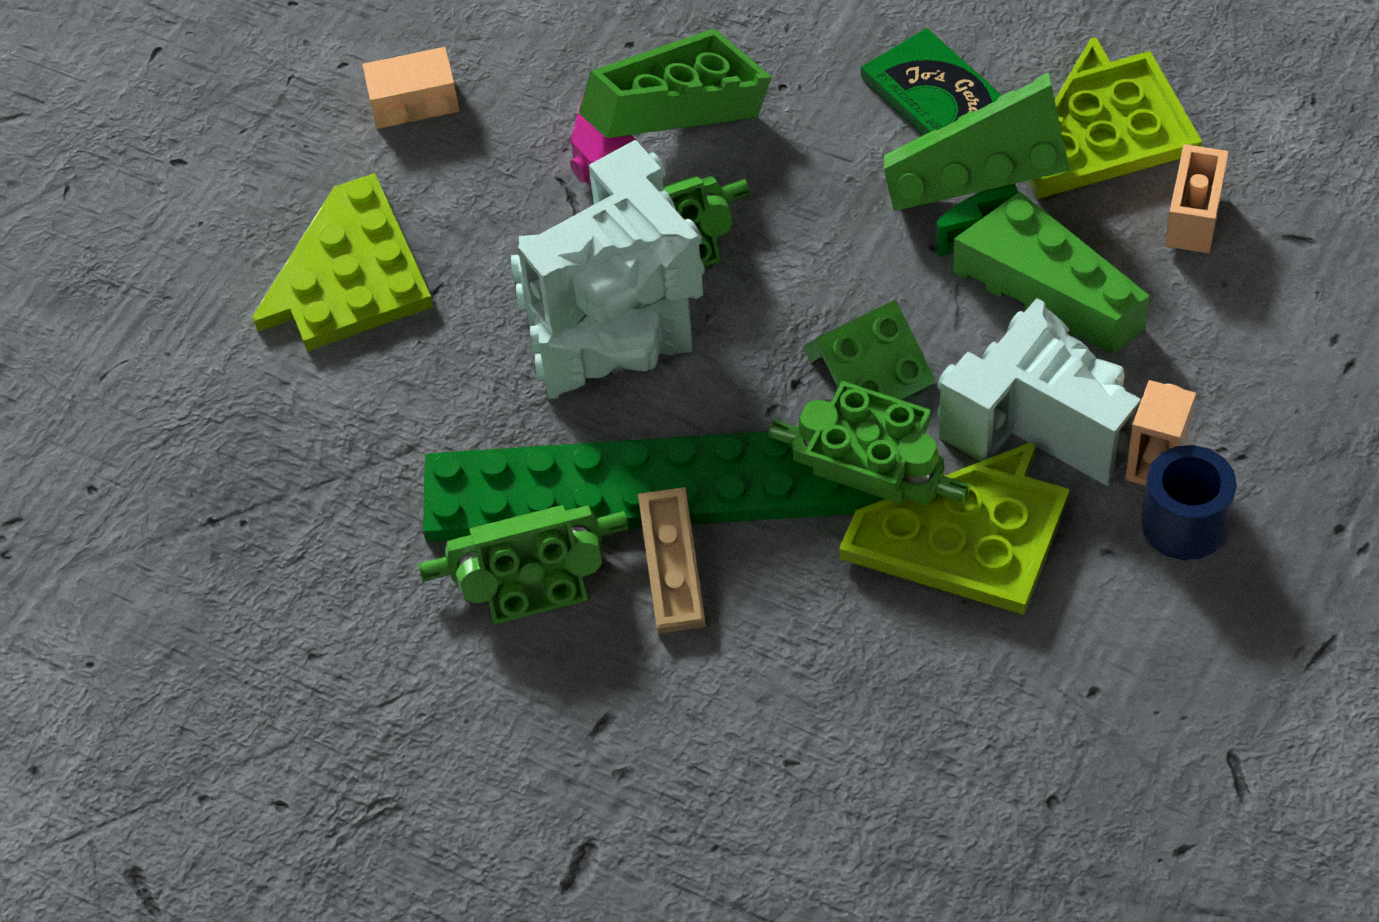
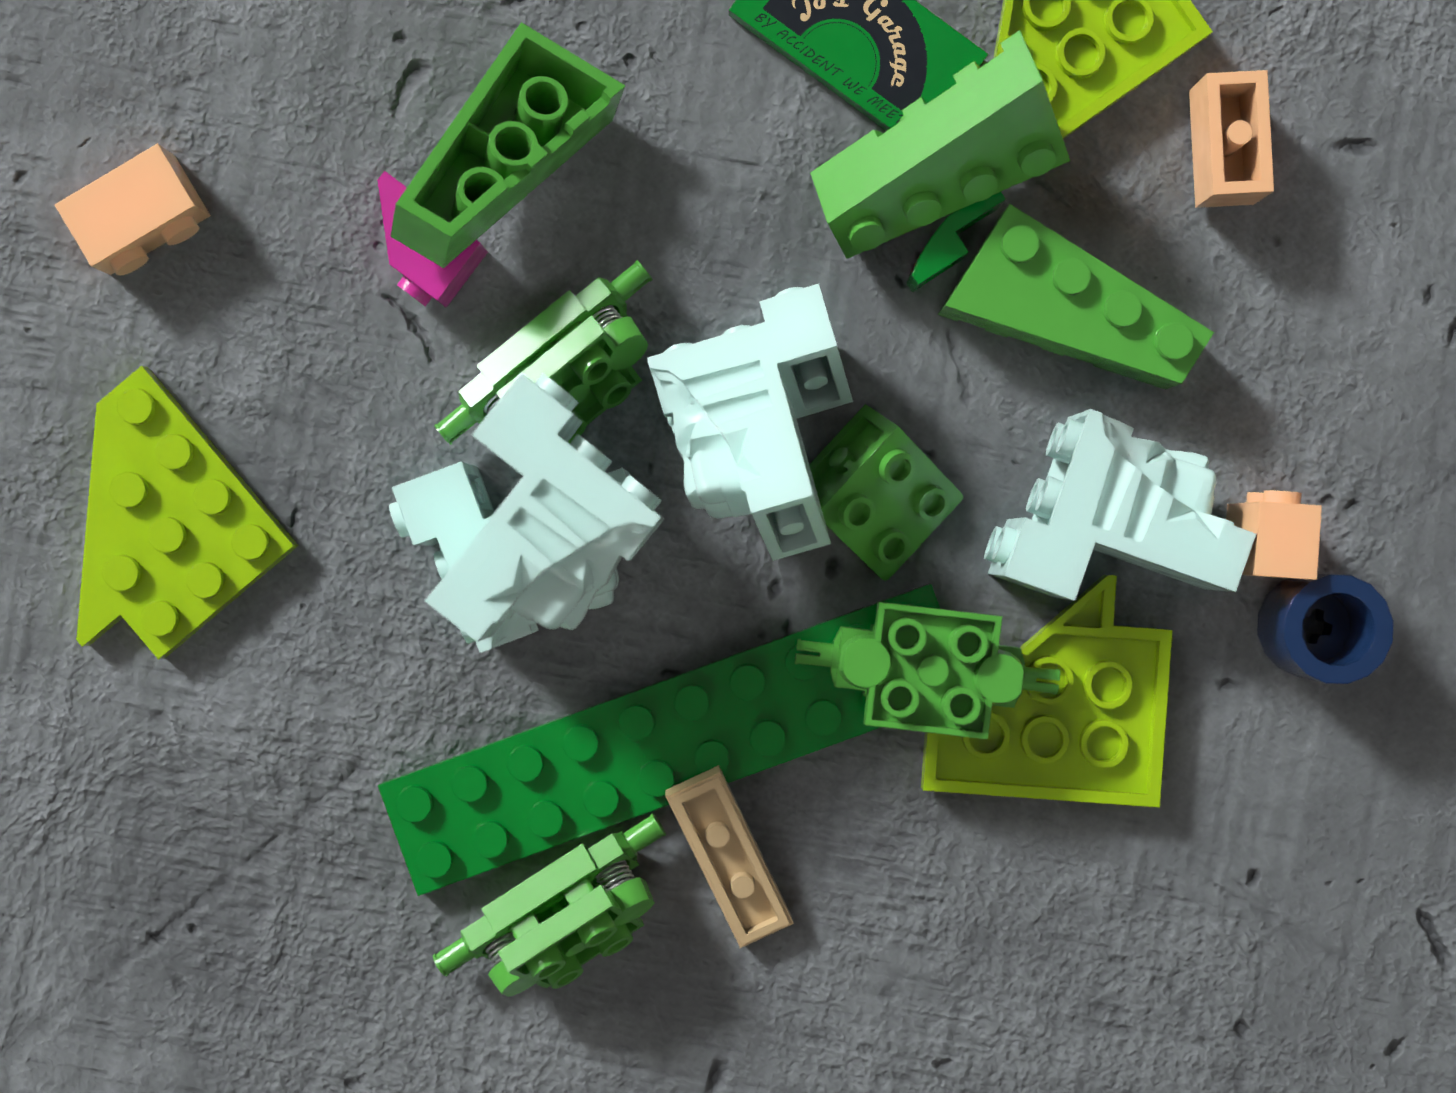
camera: 25 degrees left, 35 degrees up
(795, 258) = (738, 413): none -> light aqua brick

